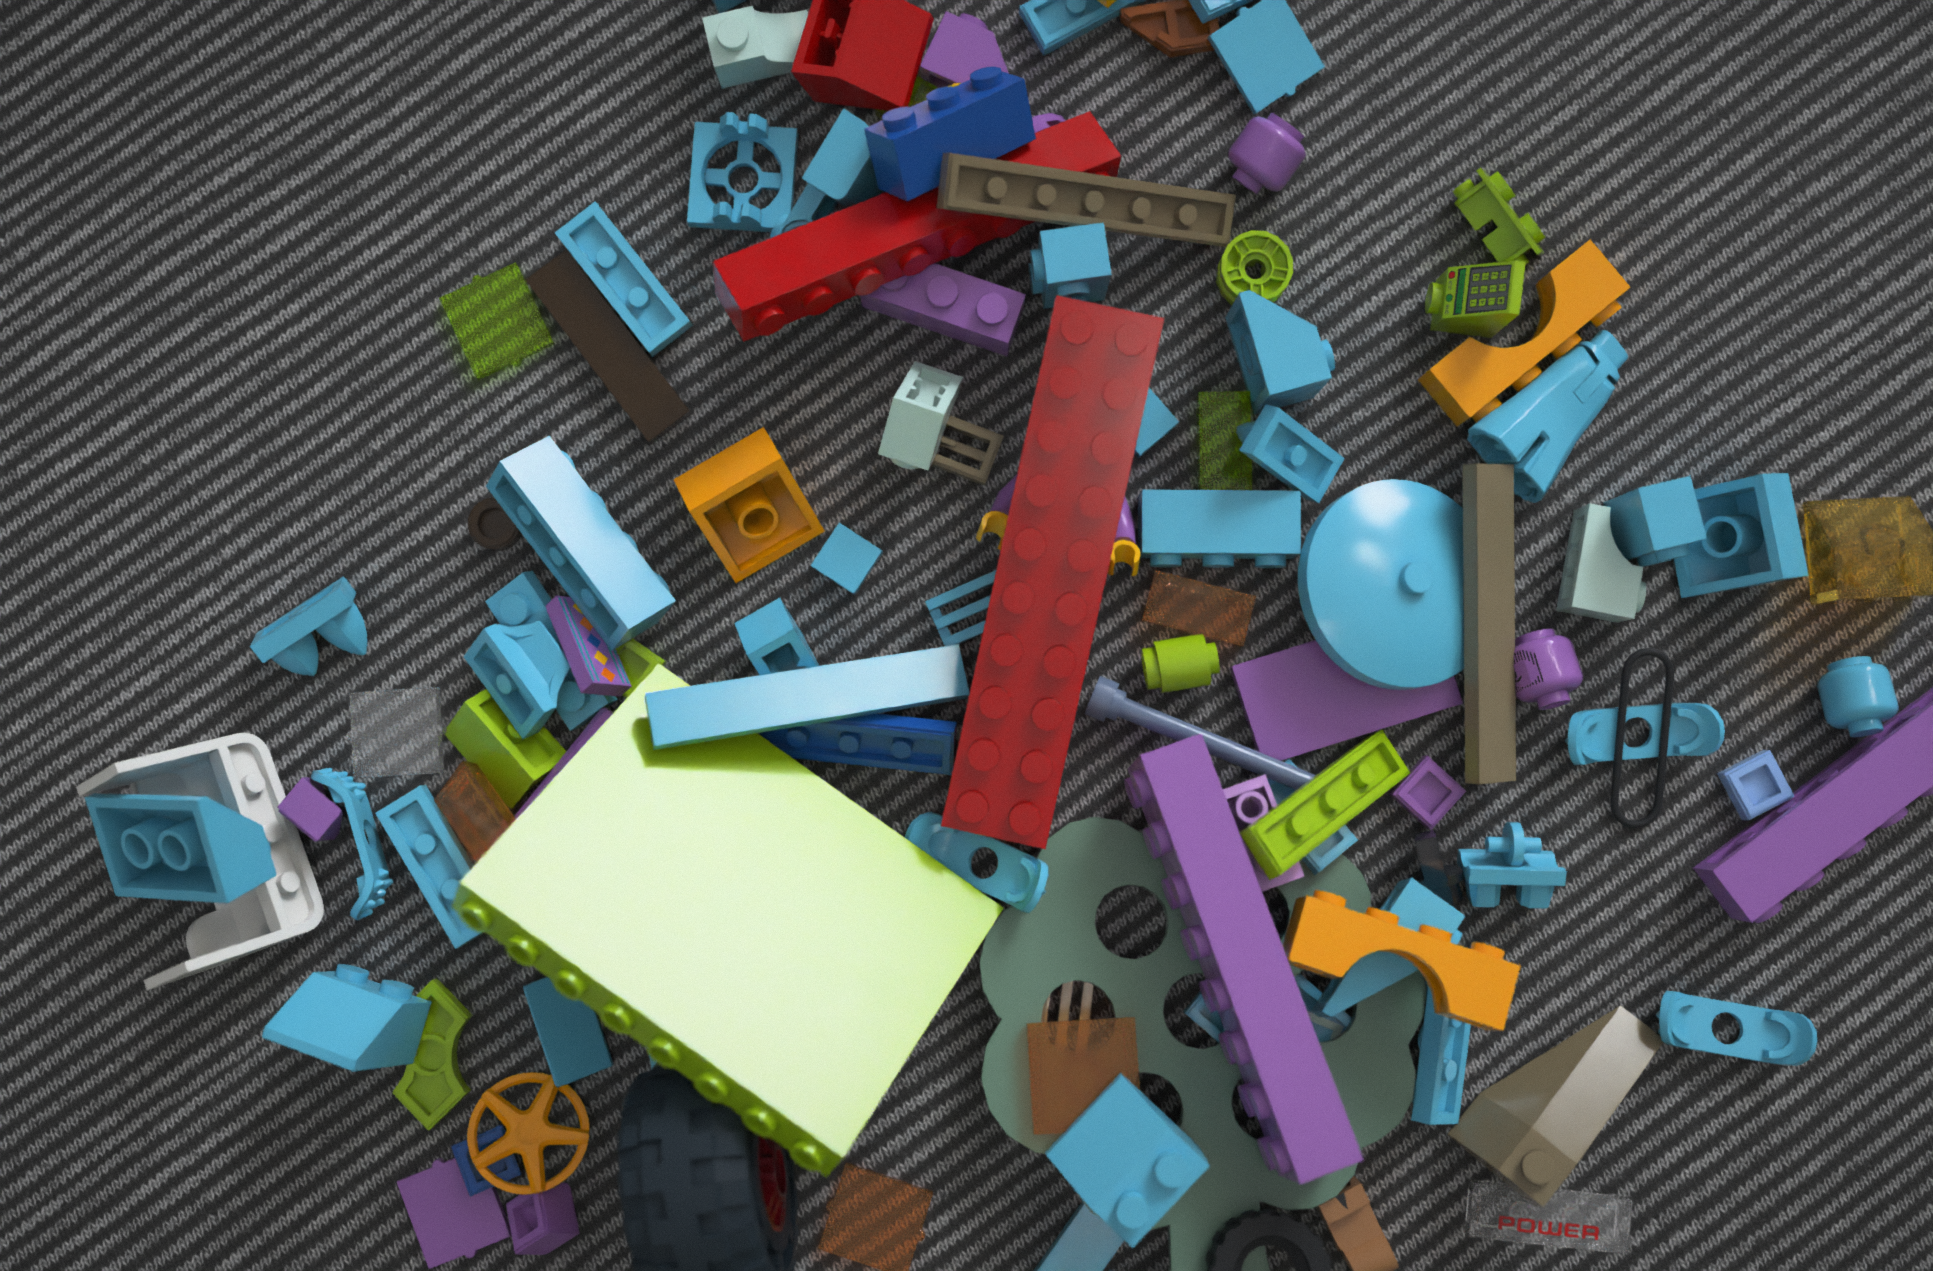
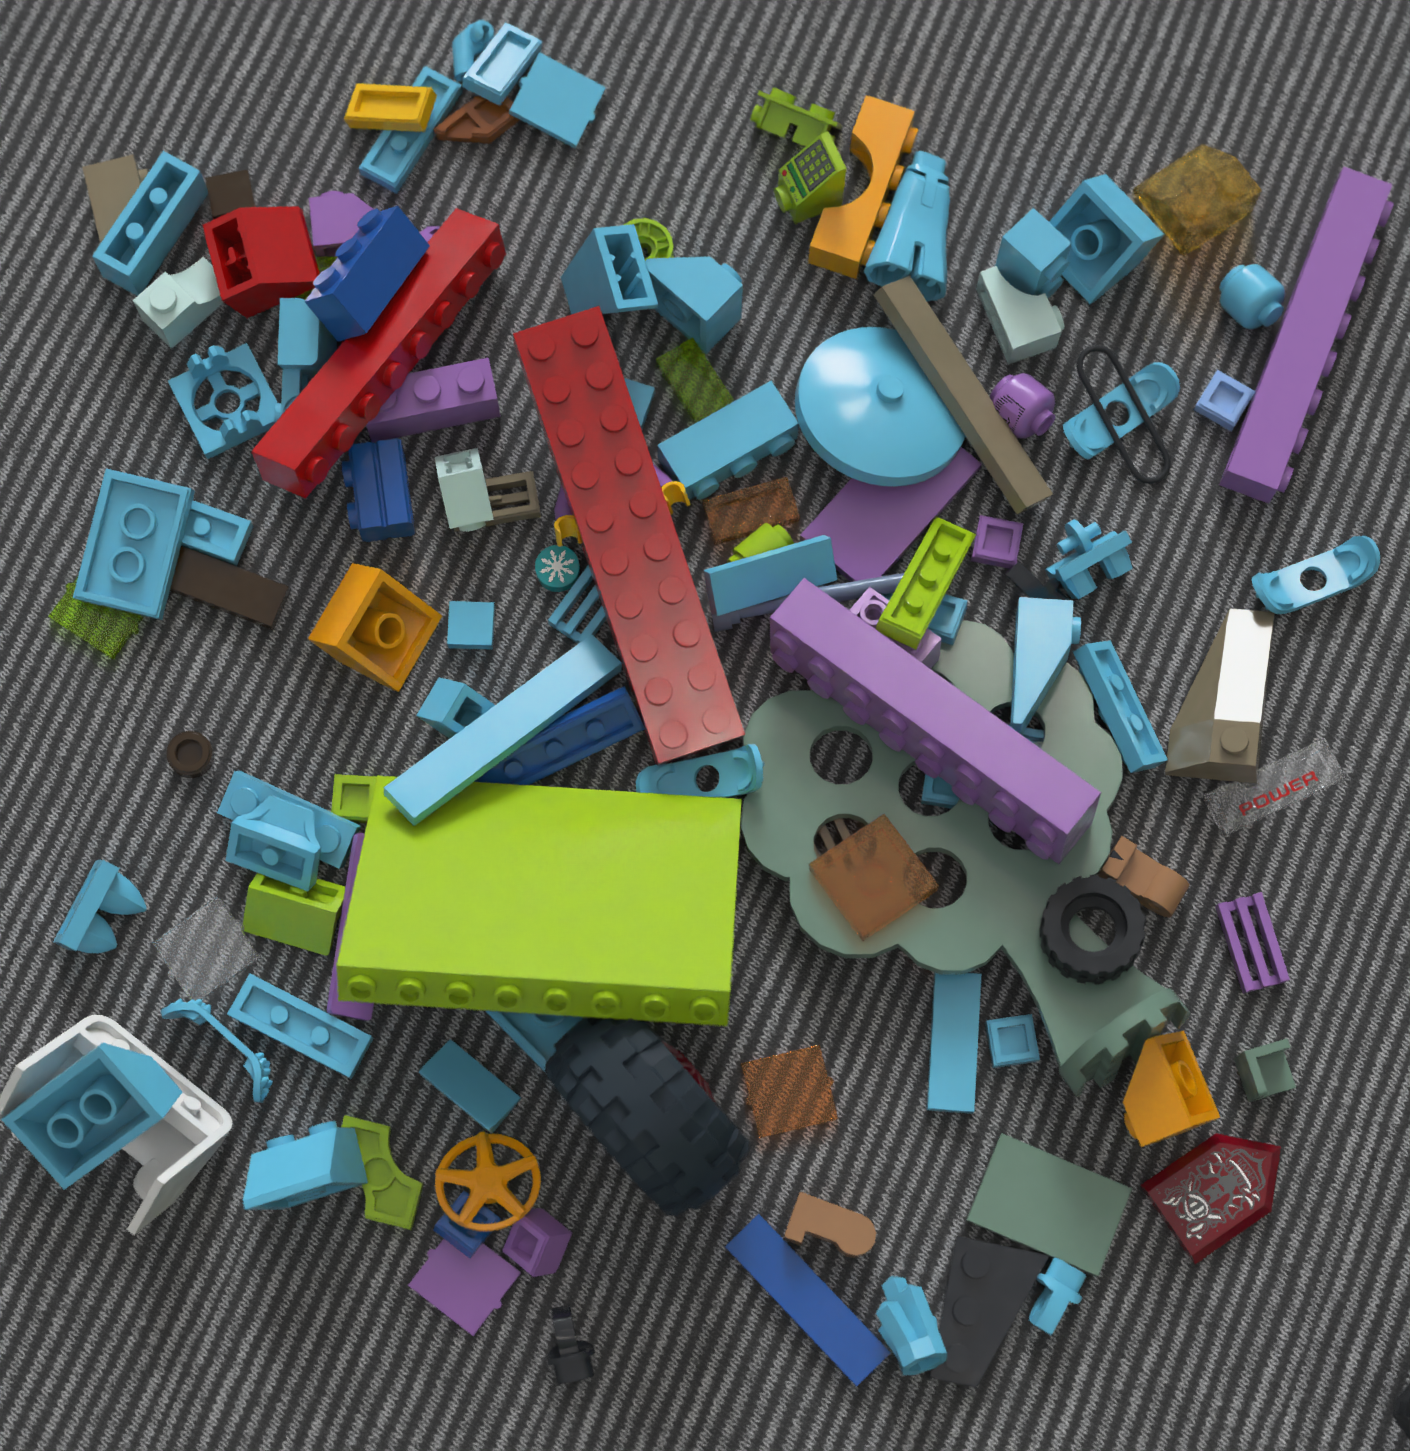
camera: 35 degrees left, 10 degrees down
(312, 810) = (179, 1039): medium lavender slope -> none
(474, 809) = (303, 965): clear orange tile -> none
(560, 276) = (133, 544): none -> medium azure tile
(580, 542) = (265, 724): medium azure brick -> none
(589, 657) = (316, 794): medium lavender tile -> none
(837, 365) = (380, 490): none -> blue brick
(966, 555) = (557, 568): none -> teal tile
(1071, 264) = (505, 311): medium azure brick -> none
(1083, 199) = (484, 269): dark tan tile -> none
(1127, 1160) = (939, 906): medium azure slope -> none
(1173, 696) = (769, 575): none -> medium azure tile
(1200, 283) = (609, 273): none -> medium azure slope
(1266, 153) = (601, 167): medium lavender head -> none
(1290, 452) = (746, 357): medium azure tile -> none
(1463, 982) = (1097, 638): light orange arch -> none

